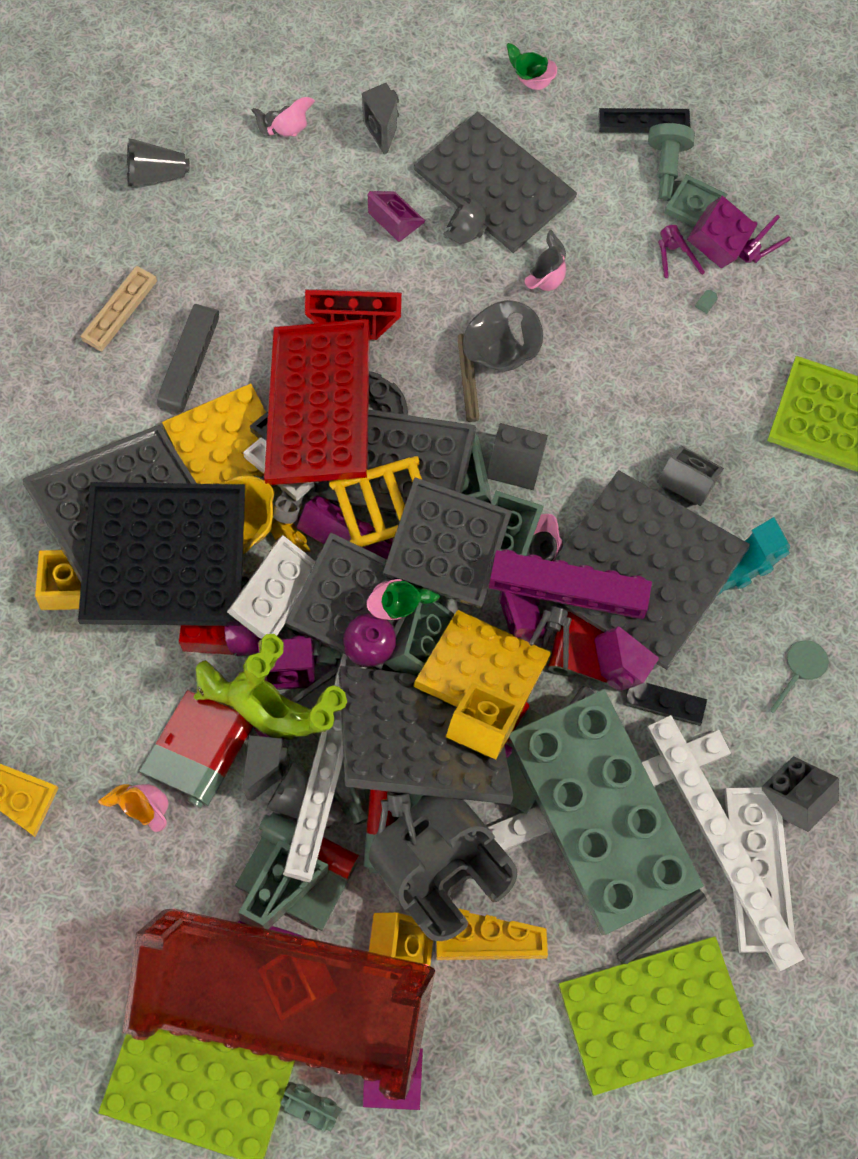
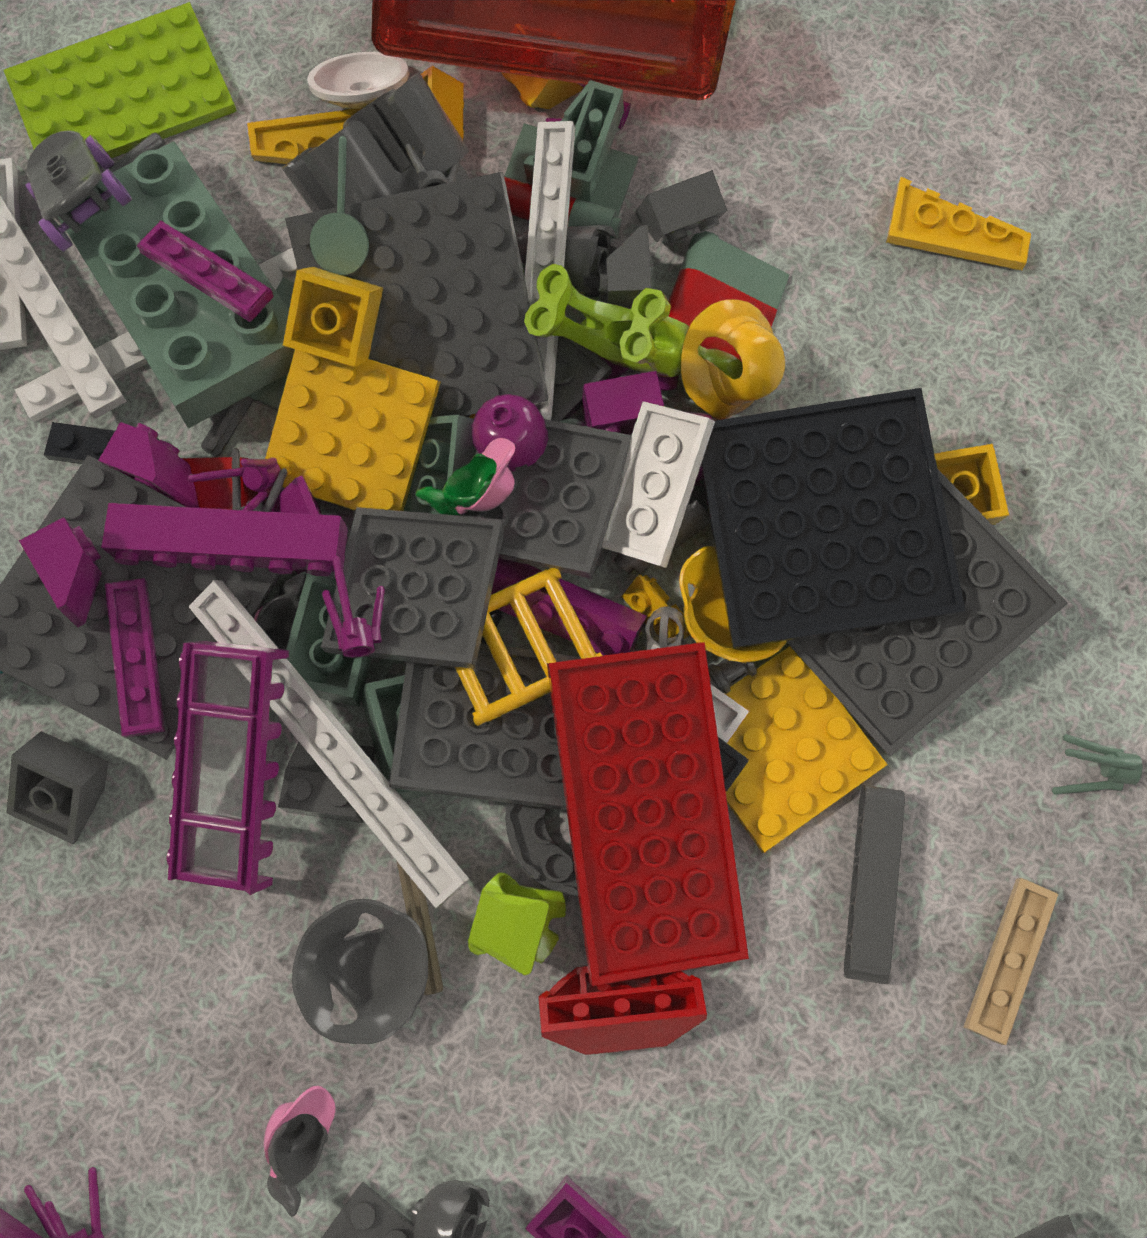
camera: 175 degrees right, 5 degrees up
(19, 401) = (1115, 765): none -> sand green plant
(140, 802) = (772, 233): light orange hair -> none
(188, 683) = (753, 340): none -> yellow piece
(211, 823) = (682, 208): none -> dark grey slope
(409, 356) = (514, 923): none -> lime piece
(468, 993) = (357, 78): none -> white dish
(474, 769) = (337, 238): none -> sand green piece
(487, 505) = (355, 636): none -> magenta plant
(515, 463) = (338, 753): none -> white plate
(549, 641) = (256, 474): none -> magenta plant
(577, 459) = (223, 765): none -> window
(579, 785) = (205, 271): none -> magenta tile
(634, 525) = (134, 658): none -> magenta tile
(676, 569) = (65, 566): none -> magenta slope
(688, 895) = (63, 175): none -> dark grey piece
(707, 301) = (21, 1125): sand green piece -> none

